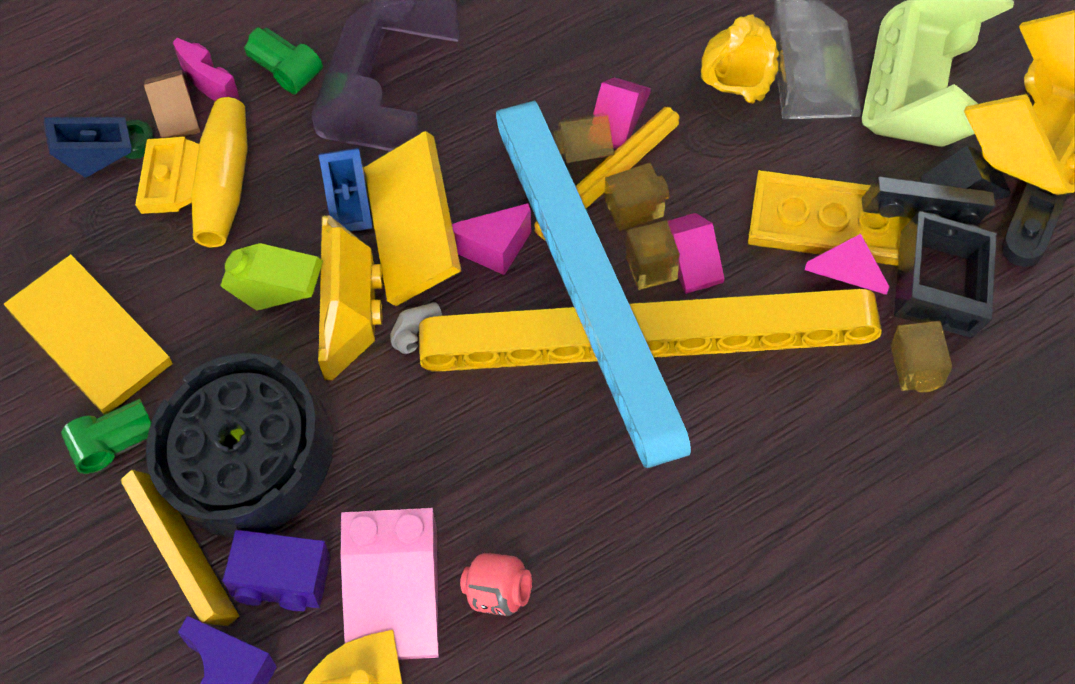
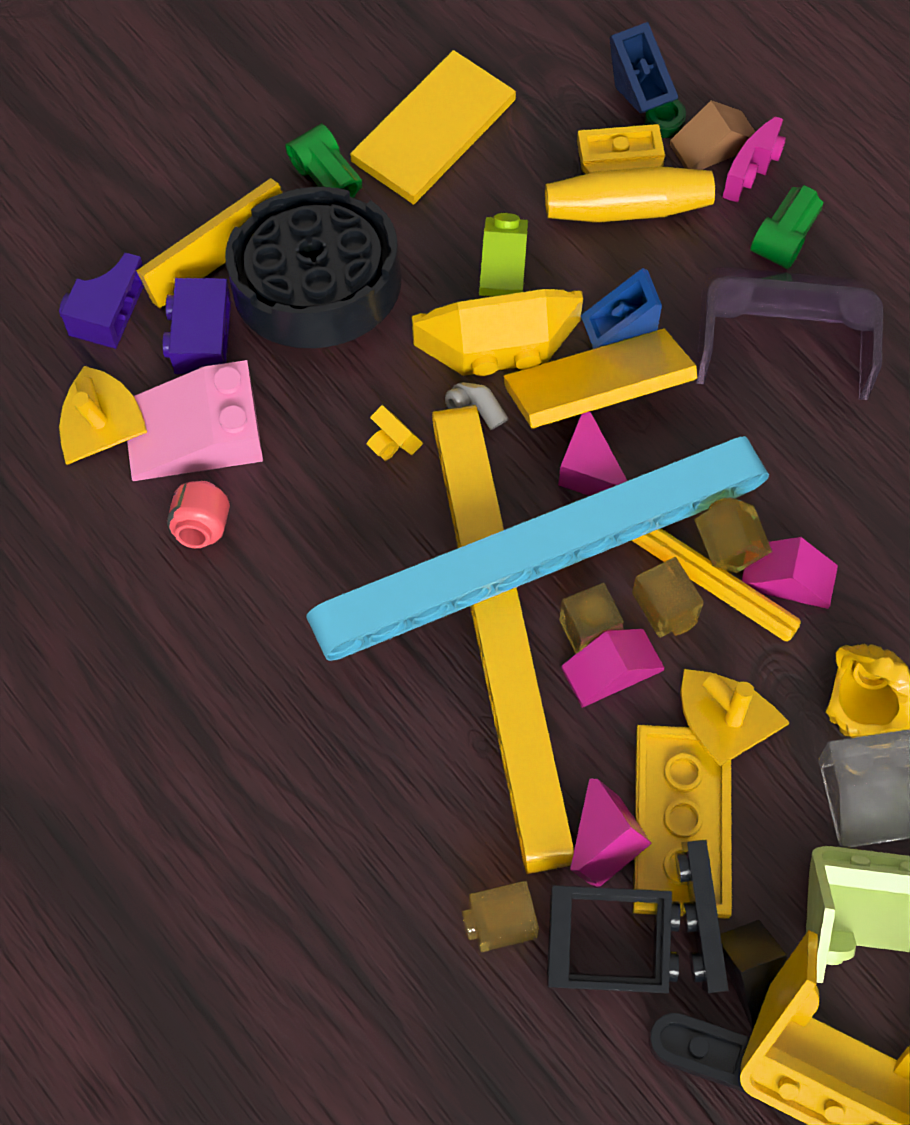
camera: 80 degrees right, 5 degrees up
(437, 398) = (392, 435): none -> yellow tile
(744, 171) = (726, 714): none -> yellow shield

